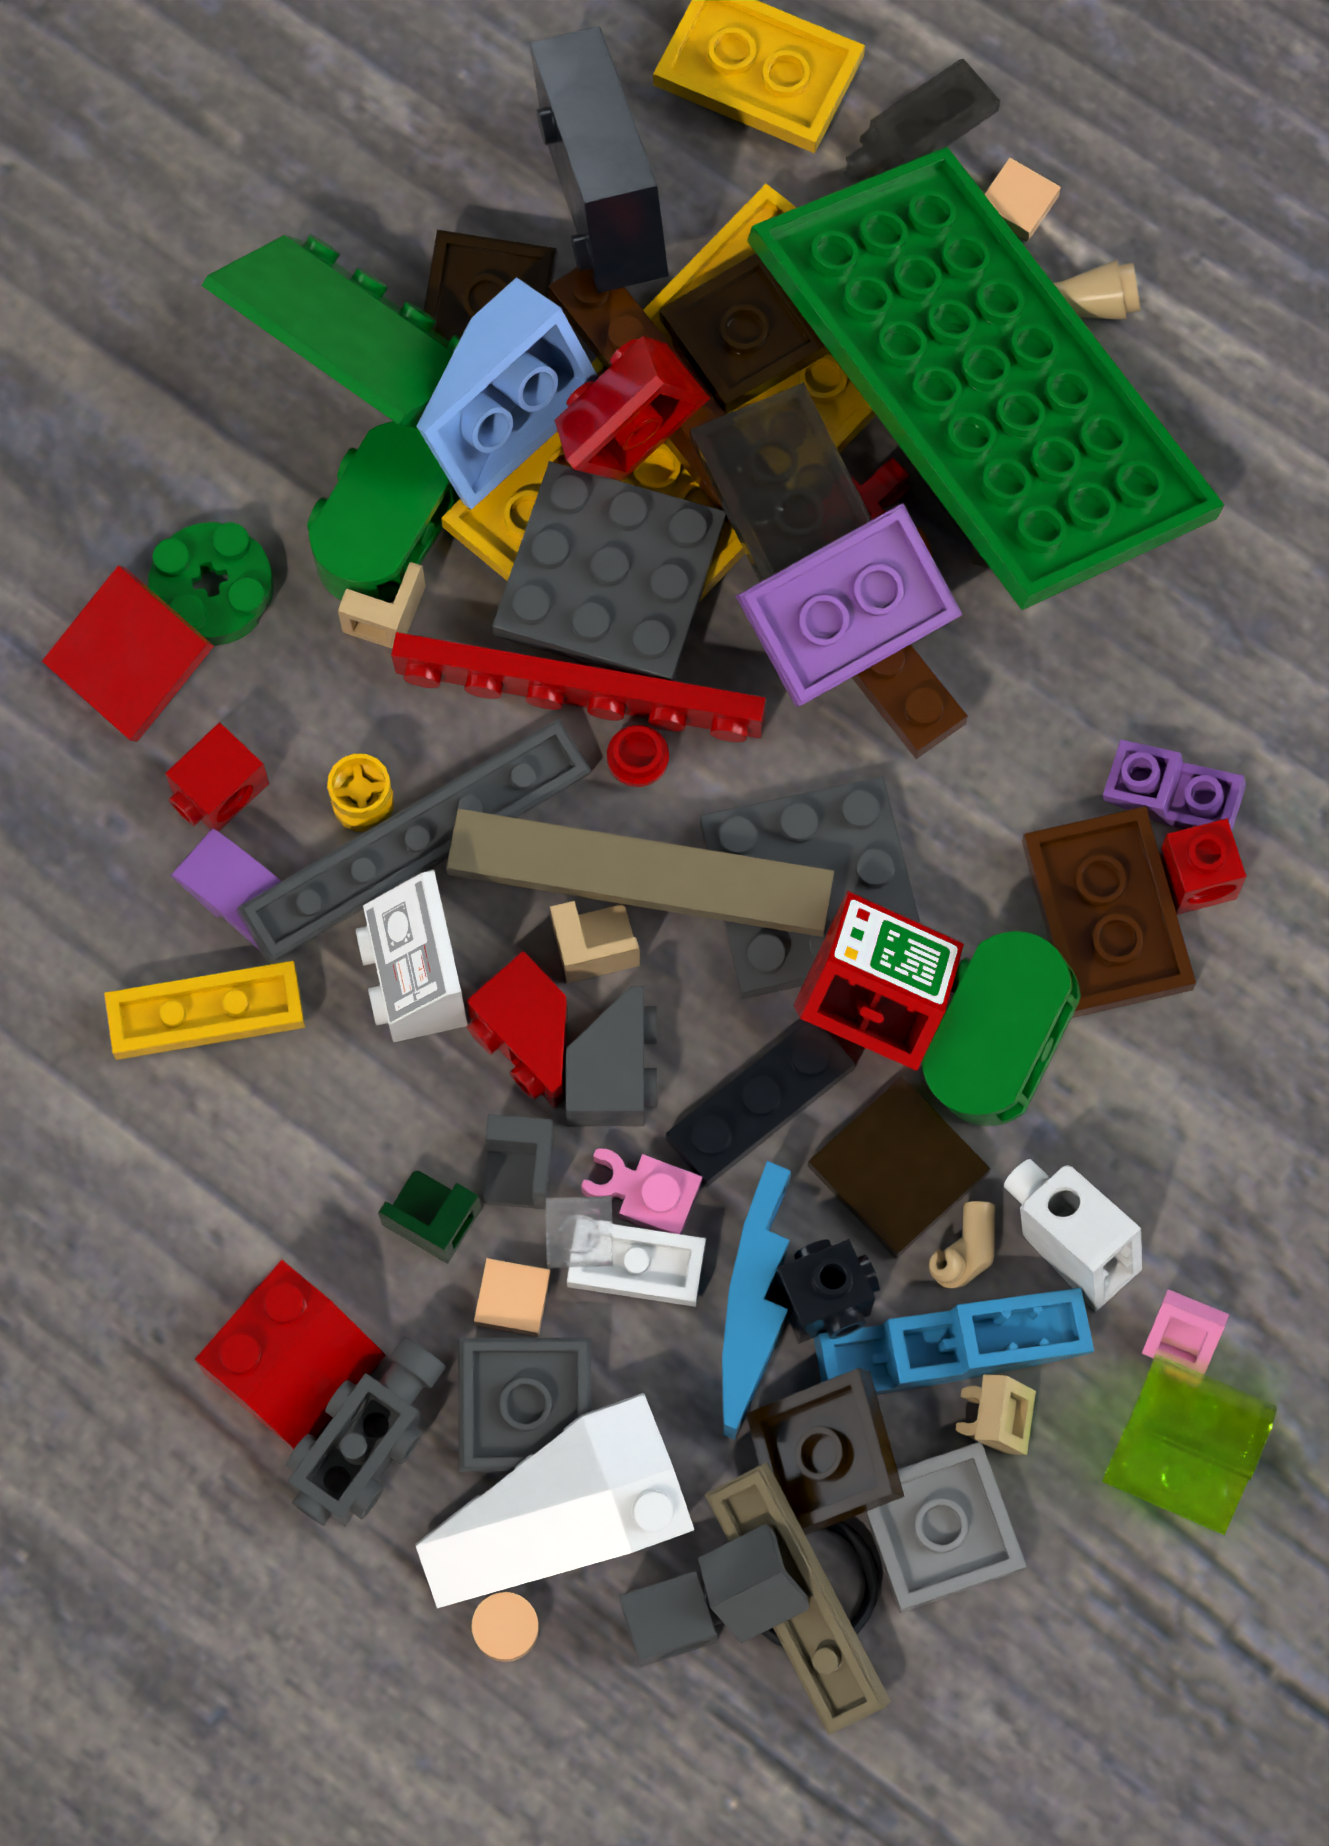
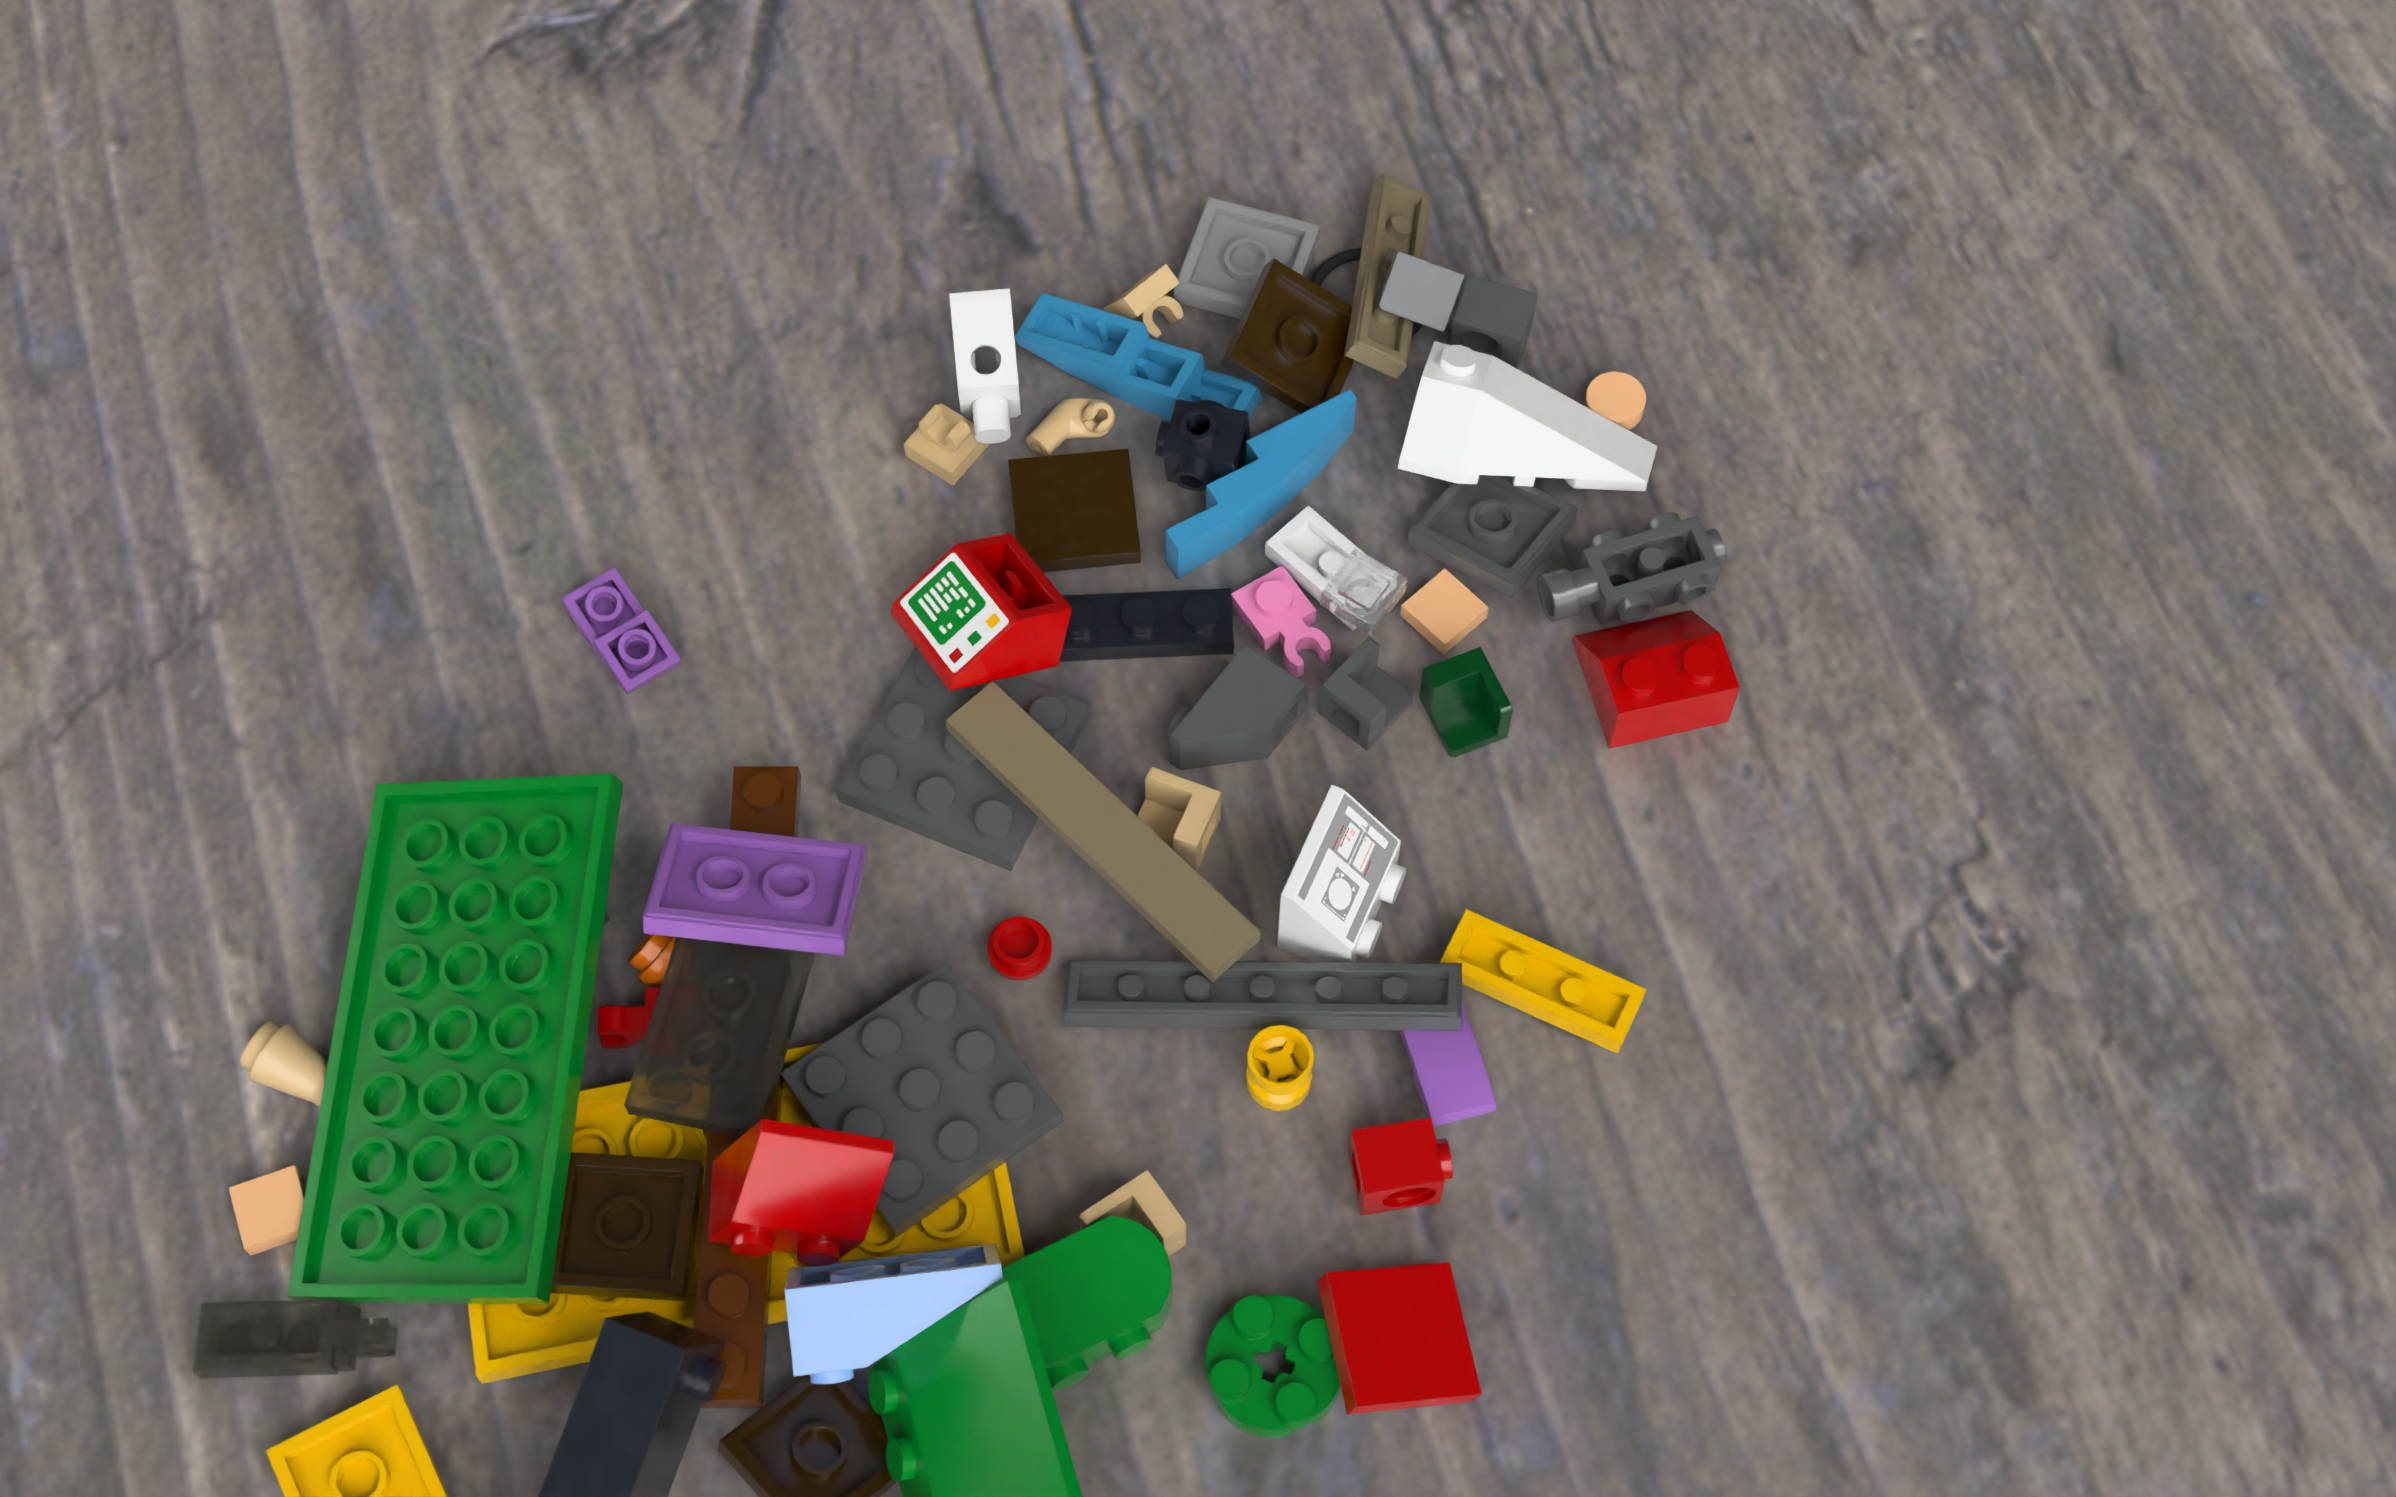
camera: 145 degrees left, 10 degrees down
(527, 1022) = (1280, 785): red slope -> none
(602, 691) = (1043, 1047): red plate -> none
(1001, 1028) = (904, 525): green brick -> none
(1061, 1144) = (944, 444): none -> tan tile
(1110, 909) = (756, 575): reddish brown plate -> none
(1185, 1331) = (965, 264): bright pink plate -> none
(1190, 1444) = (1022, 201): clear neon green brick -> none
(1202, 866) = (658, 550): red brick -> none

